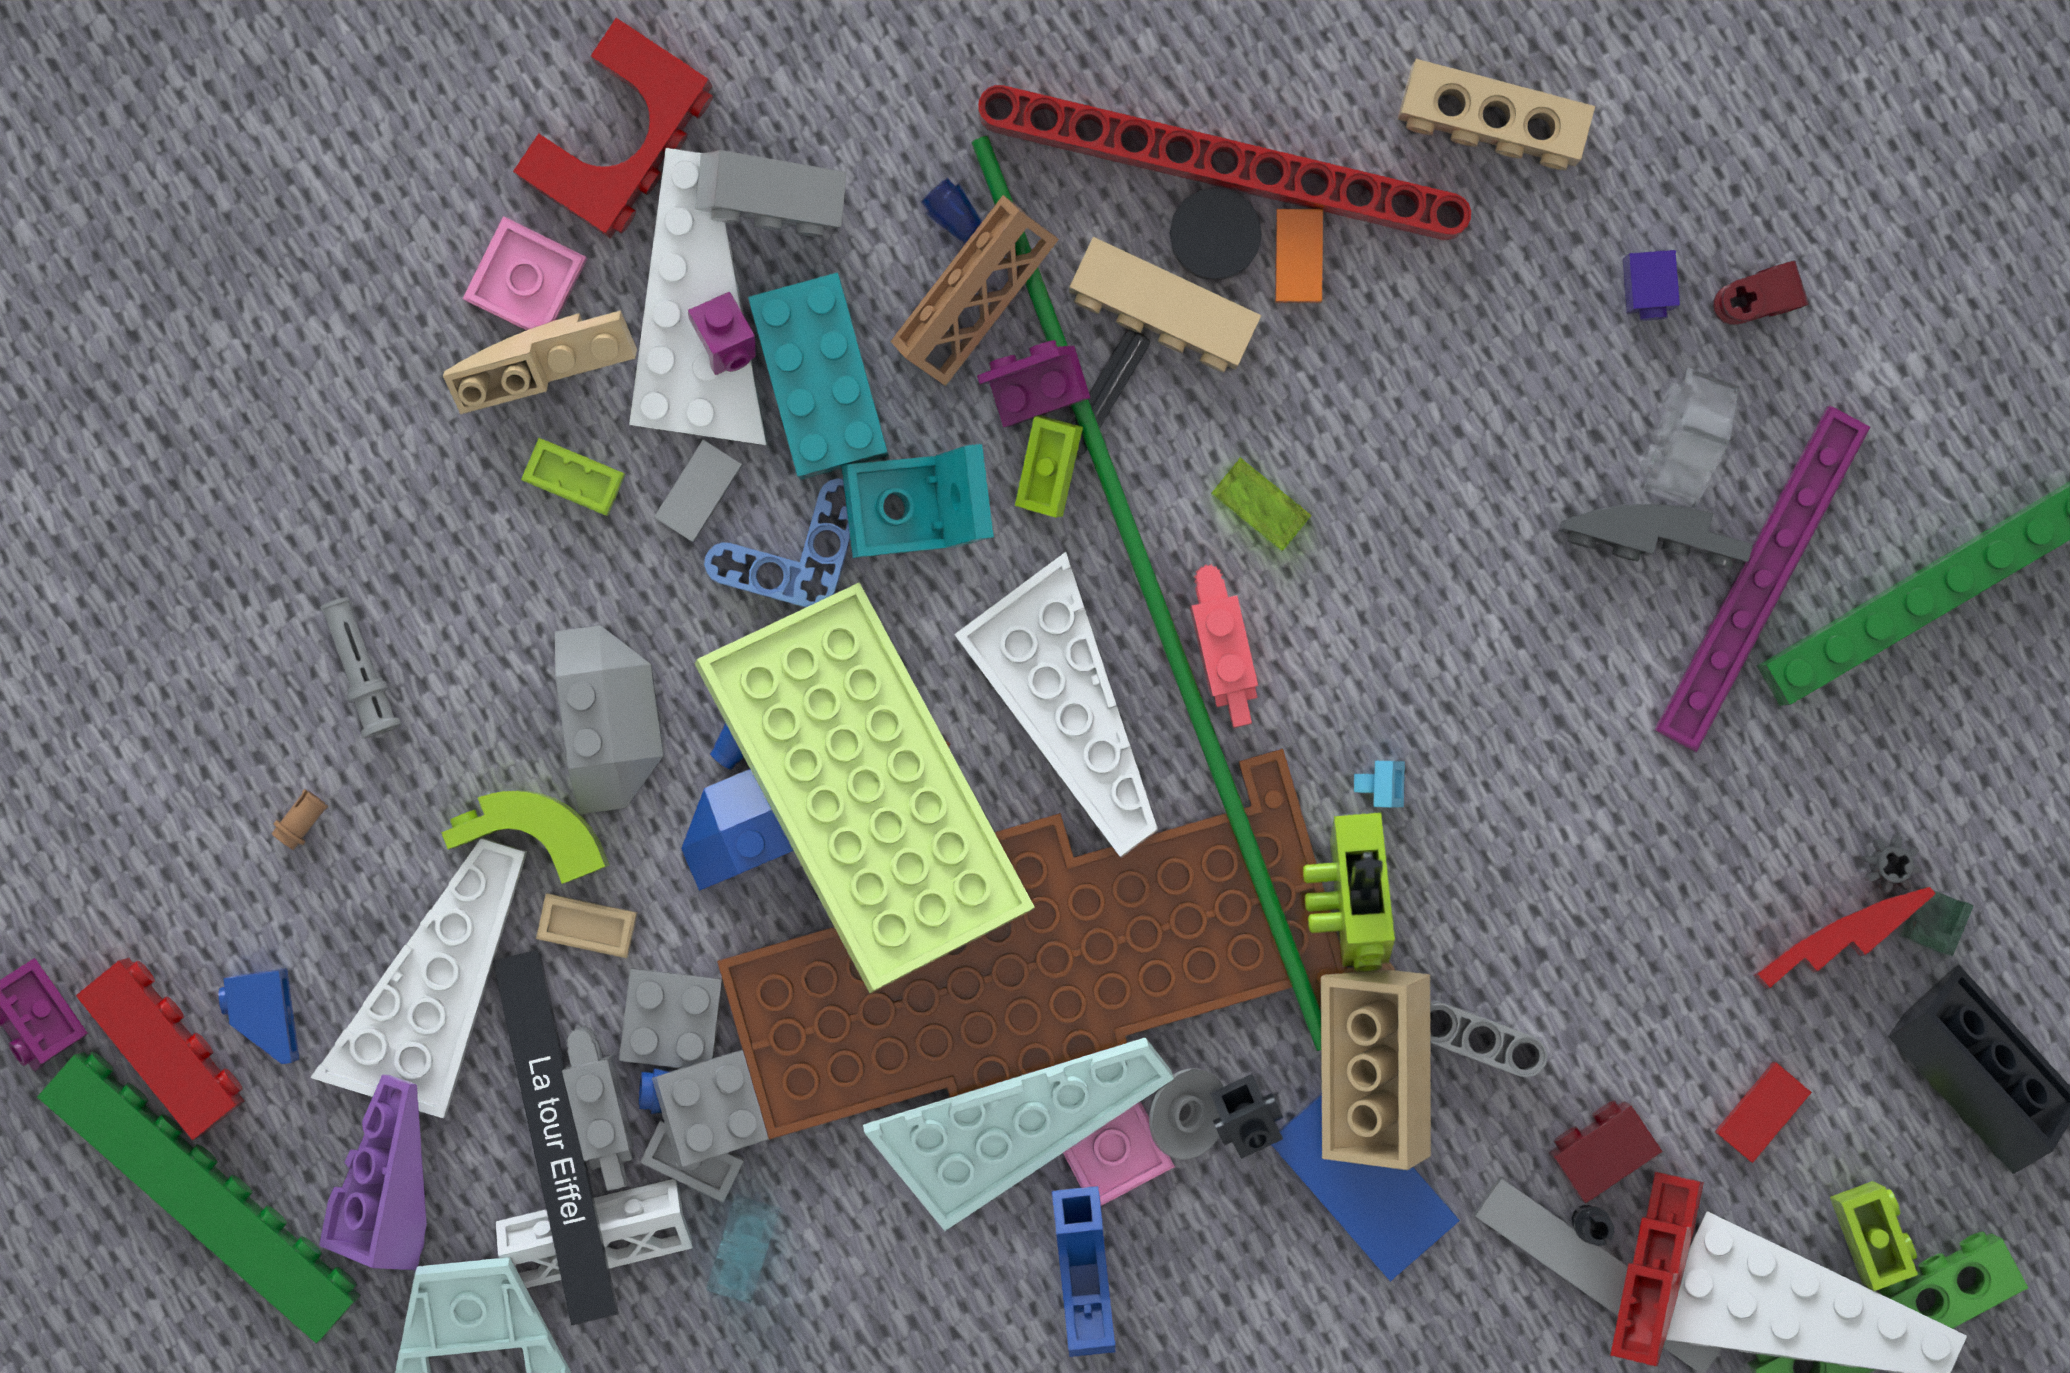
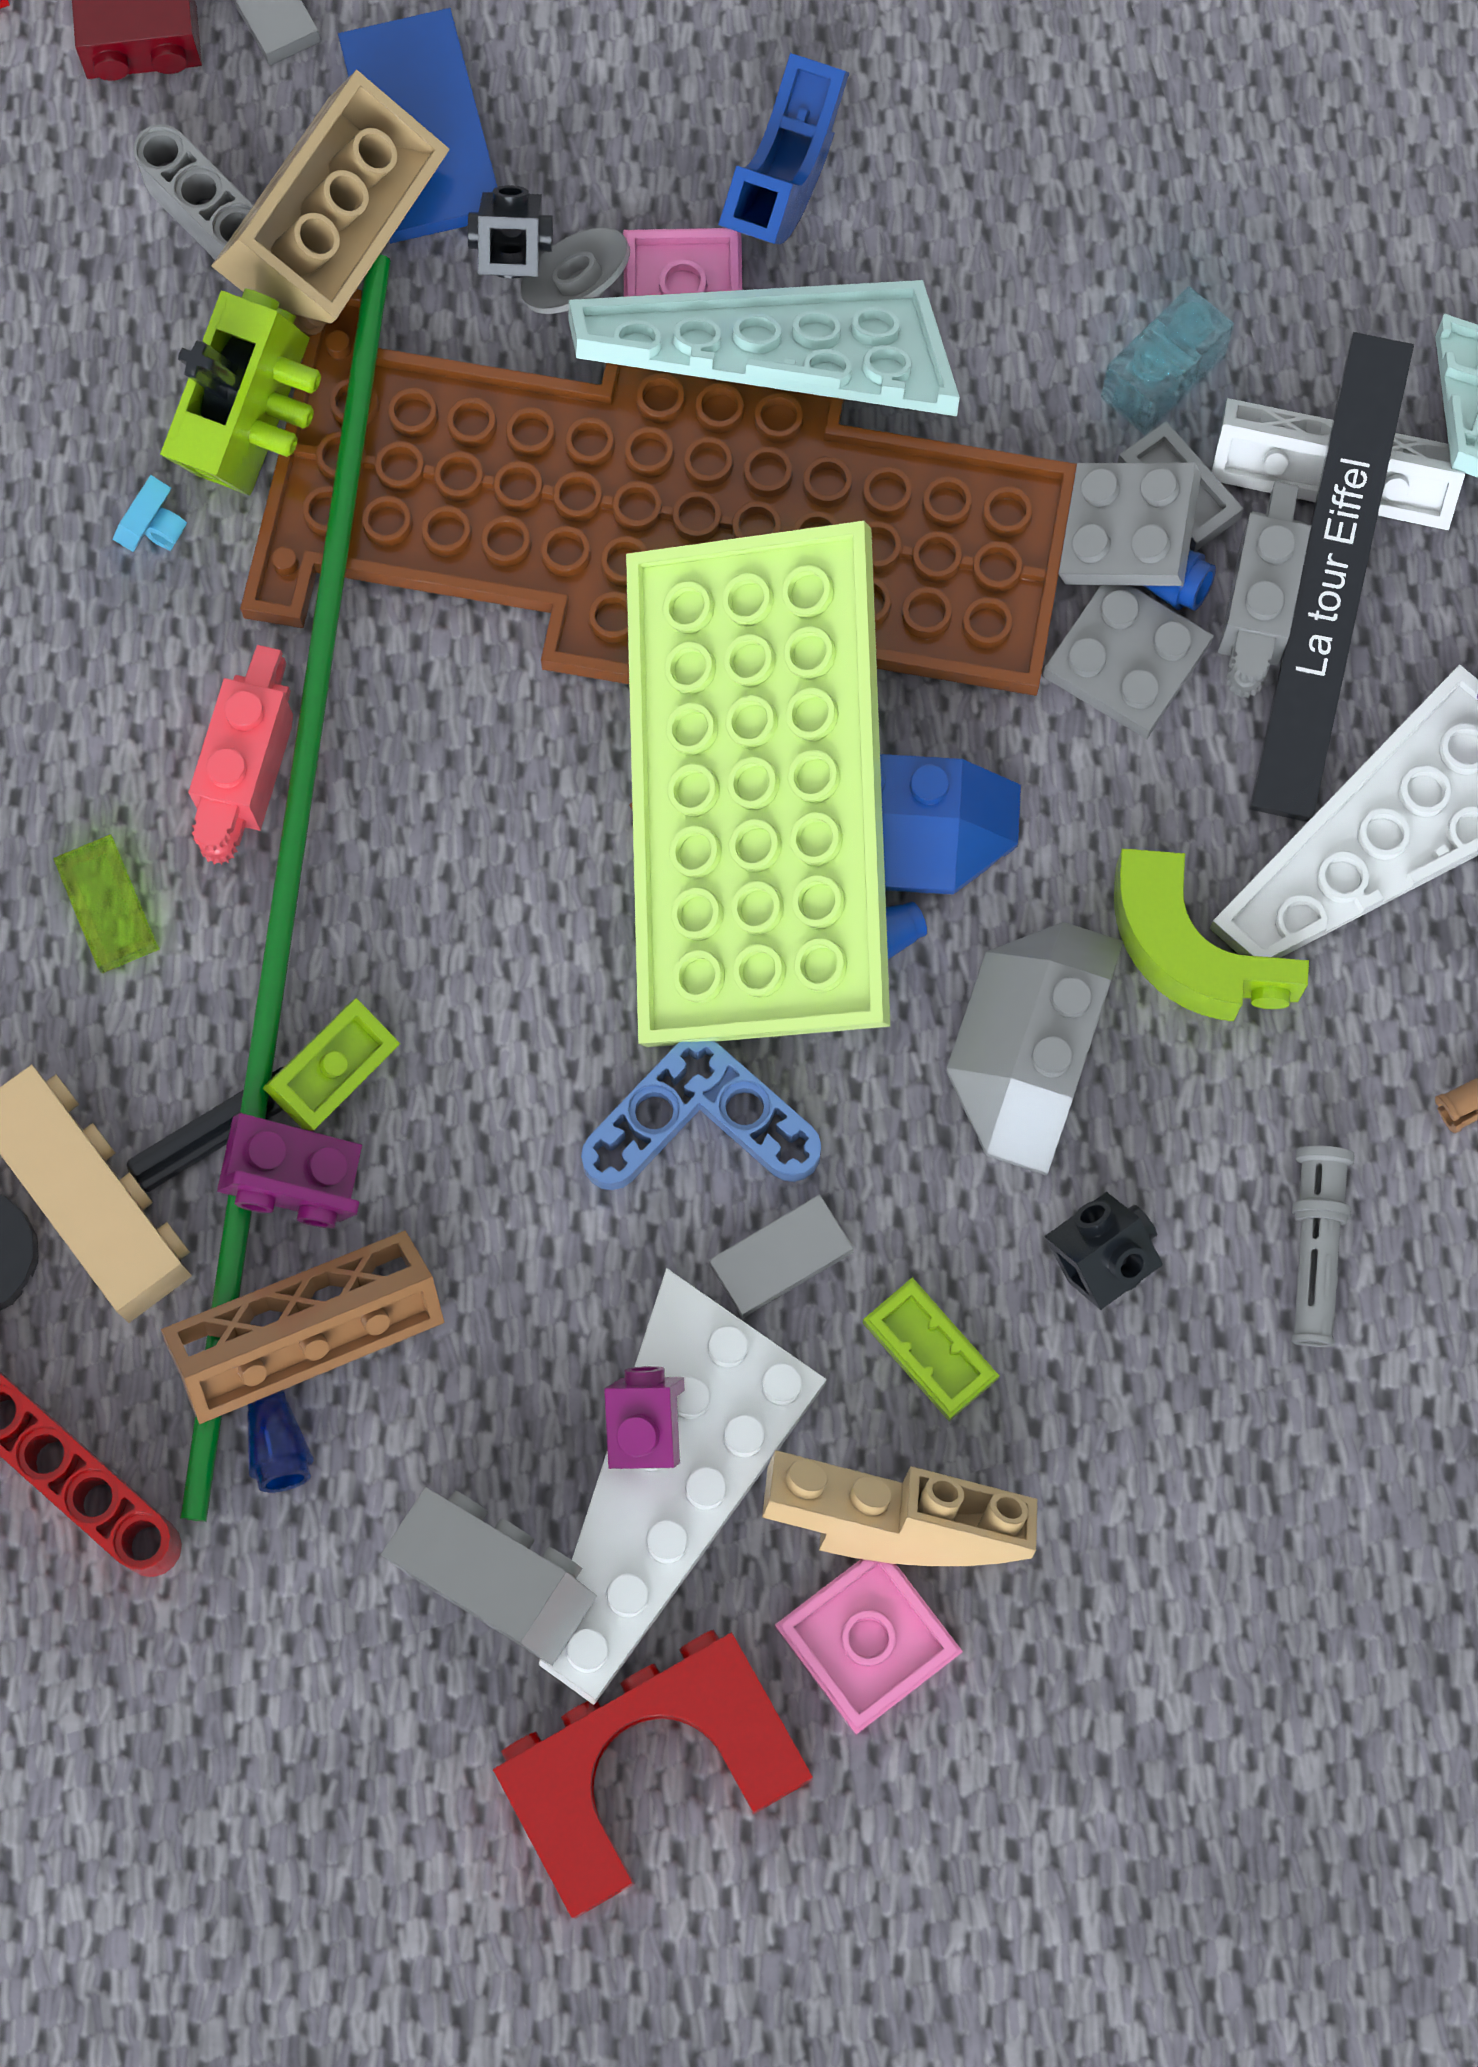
camera: 145 degrees left, 15 degrees down
(491, 593) = (1105, 1249): none -> black brick
(586, 925) = (1177, 809): tan tile -> none
(818, 376) = (554, 1315): teal brick -> none
(941, 498) = (481, 1087): teal bracket -> none
(1052, 678) = (464, 812): white wing -> none

